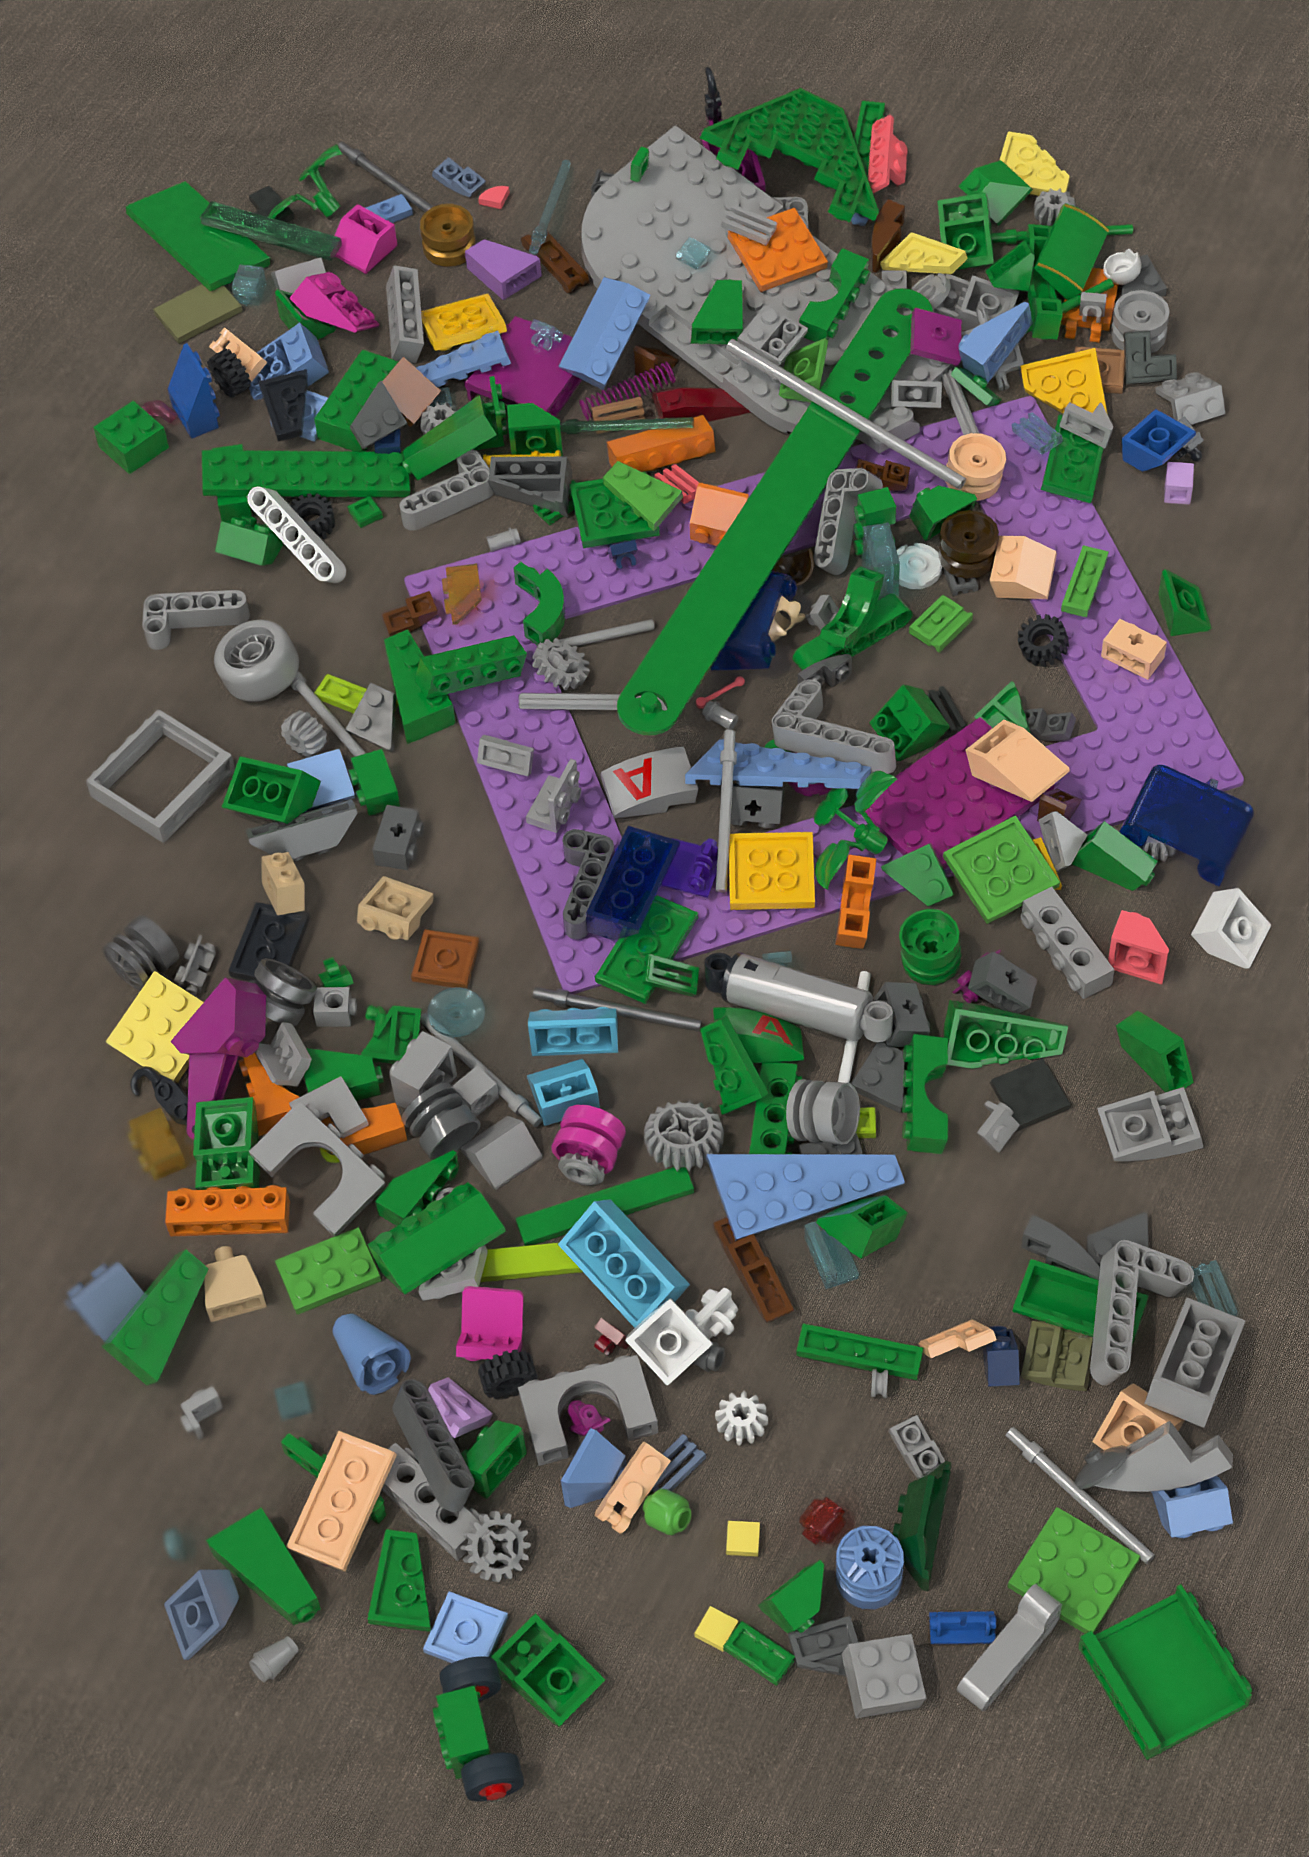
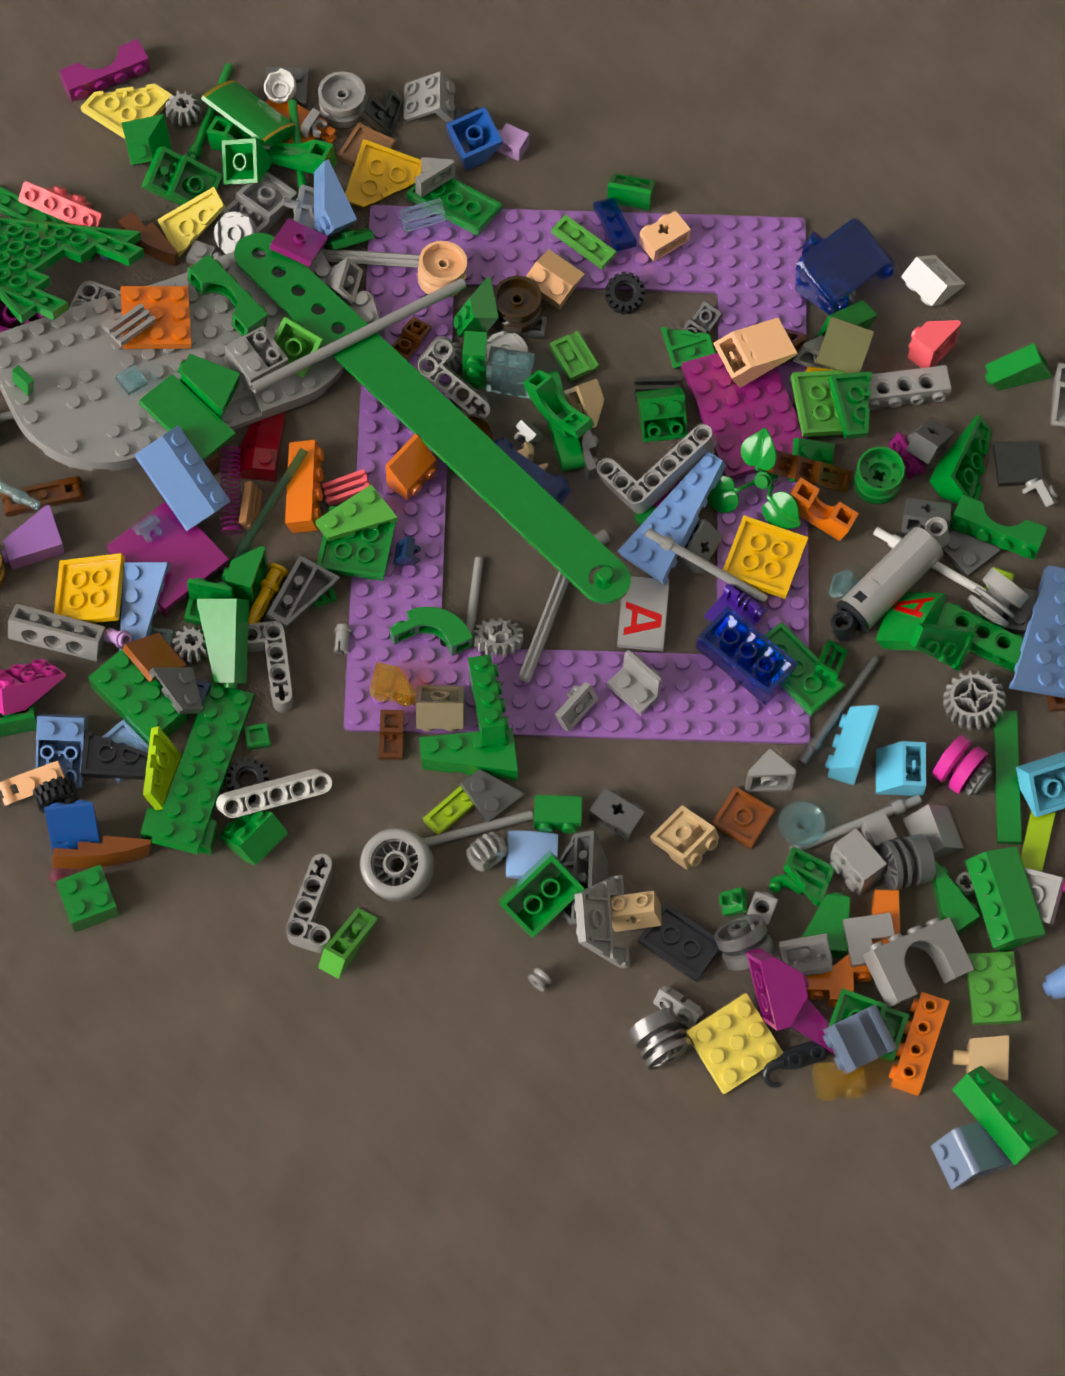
camera: 75 degrees left, 10 degrees up
(160, 655) = (346, 943): none -> bright green slope
(179, 831) = (539, 979): none -> light grey bush
(181, 430) = (111, 852): none -> dark orange slope
(188, 801) = (485, 925): light grey window -> none
(188, 1125) = (859, 1039): none -> sand blue piece
(248, 836) = (595, 920): none -> light grey wing
(285, 434) = (160, 769): none -> lime wing
(415, 355) = (117, 637): none -> lavender pin
(449, 629) = (440, 707): none -> dark tan slope
(499, 953) = (770, 774): none -> light grey slope
(591, 863) = (723, 692): dark grey beam -> none
(671, 312) = (176, 405): none -> green tile
(885, 647) = (587, 399): none -> tan slope
(895, 867) = (813, 471): none -> reddish brown slope
(1008, 885) = (851, 399): none -> green wing
(1073, 851) = (844, 346): none -> olive slope
(1084, 149) = (83, 81): none -> magenta arch
(1123, 601) = (614, 224): none -> clear blue tile

